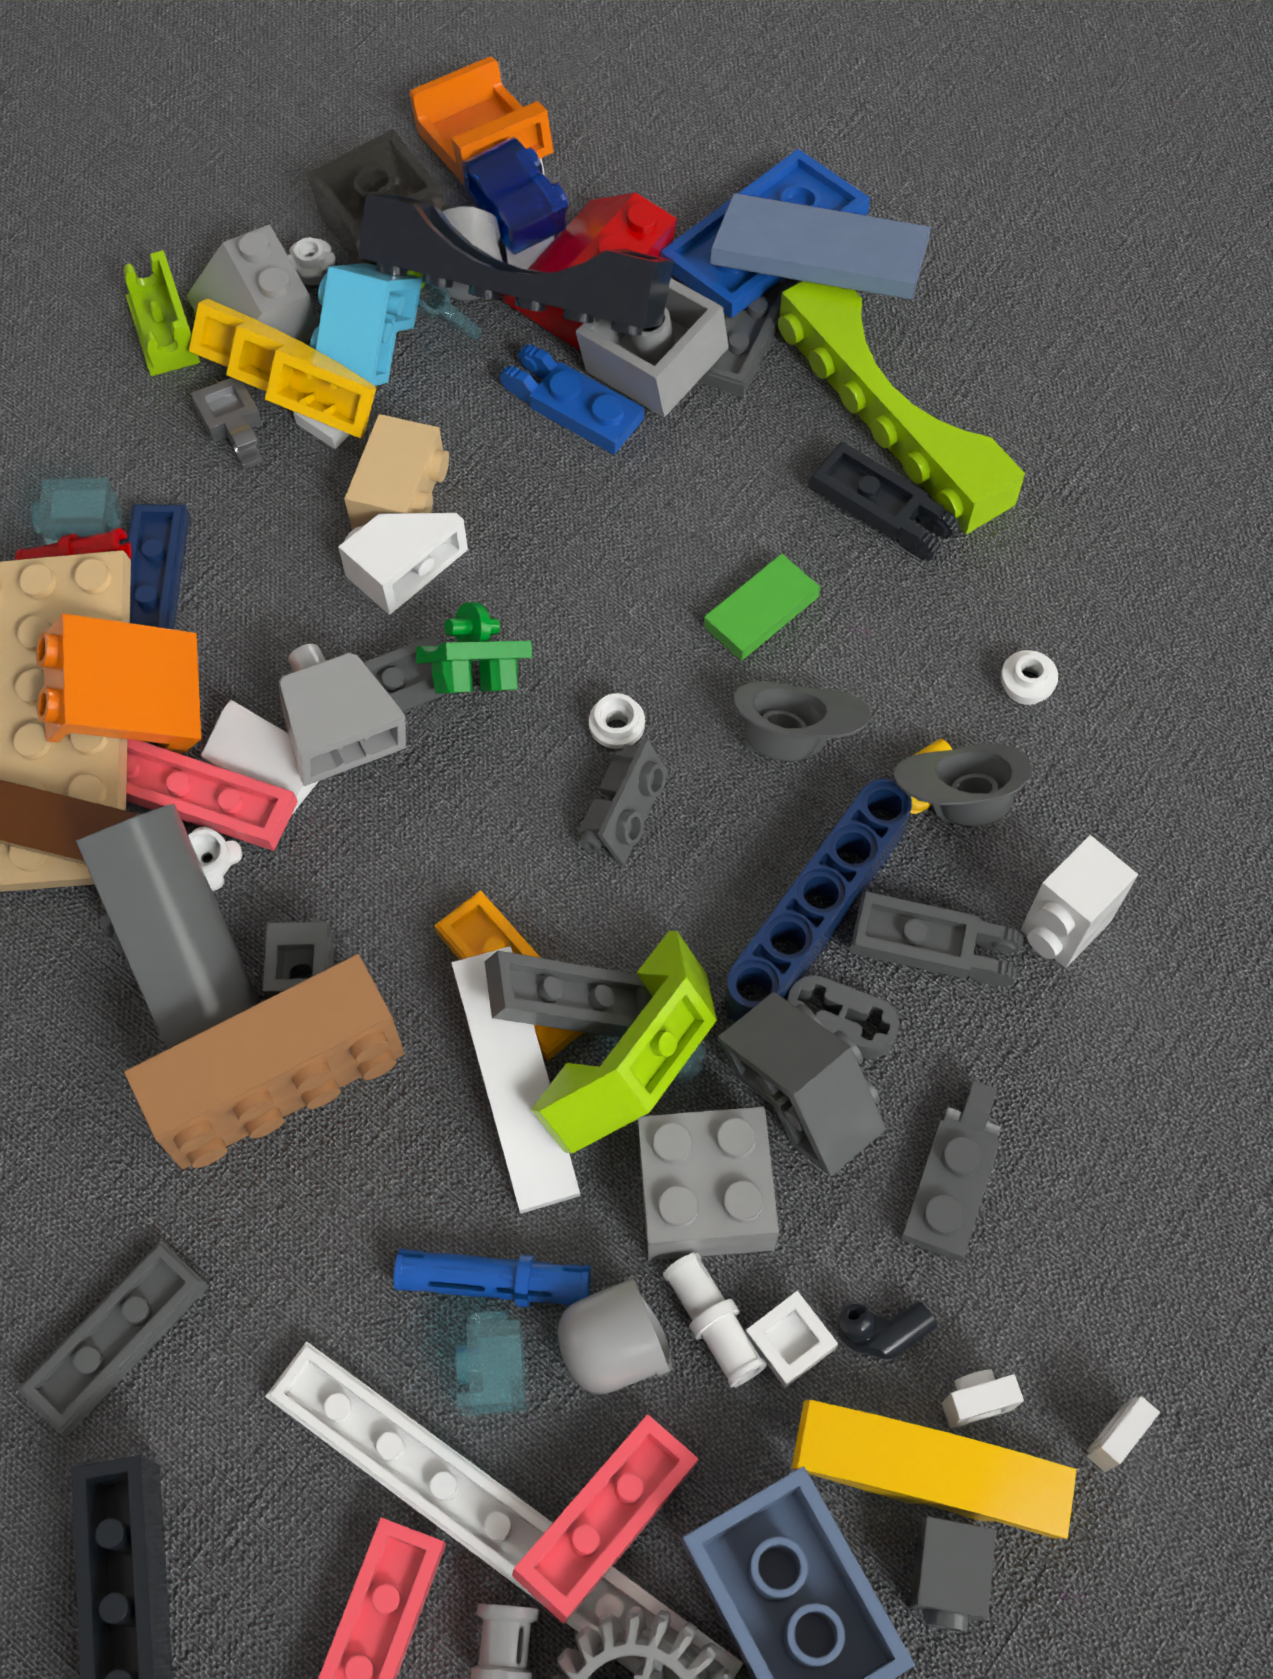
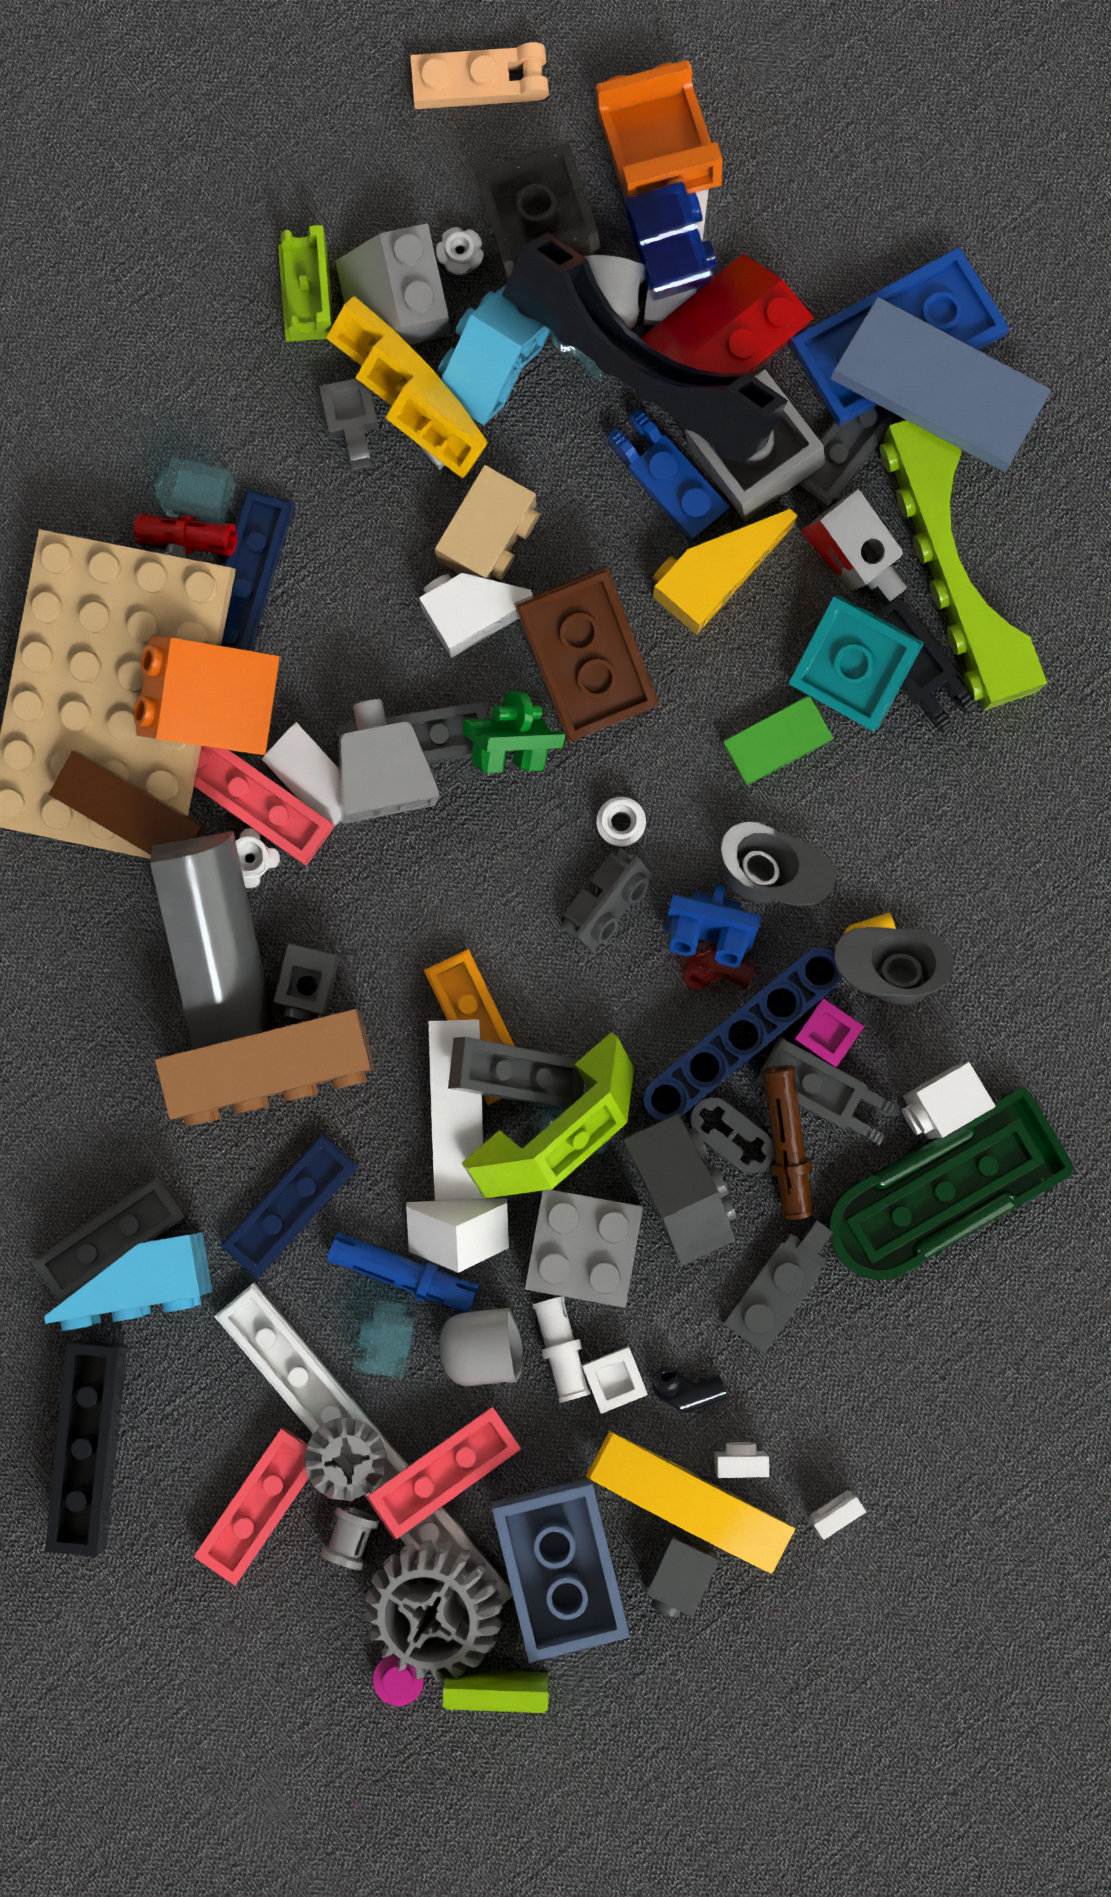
camera: 10 degrees right, 20 degrees up
(156, 1362) = (149, 1274): none -> medium azure slope
(296, 125) = (478, 77): none -> light nougat plate
(333, 1237) = (289, 1206): none -> dark blue tile
(460, 1564) = (326, 1445): none -> light grey gear
(533, 563) = (586, 653): none -> reddish brown tile
(547, 1206) = (457, 1231): none -> white slope
(647, 460) = (713, 571): none -> yellow slope
(748, 793) = (712, 921): none -> blue hips
(766, 840) = (703, 970): none -> clear red arm
(783, 400) = (840, 536): none -> light grey torso
(820, 505) = (856, 663): none -> teal plate
(911, 1001) = (786, 1128): none -> reddish brown pin
(916, 873) = (828, 1033): none -> dark pink plate
(1025, 689) = (973, 880): white plate -> none
(1108, 1013) = (947, 1189): none -> dark green piece

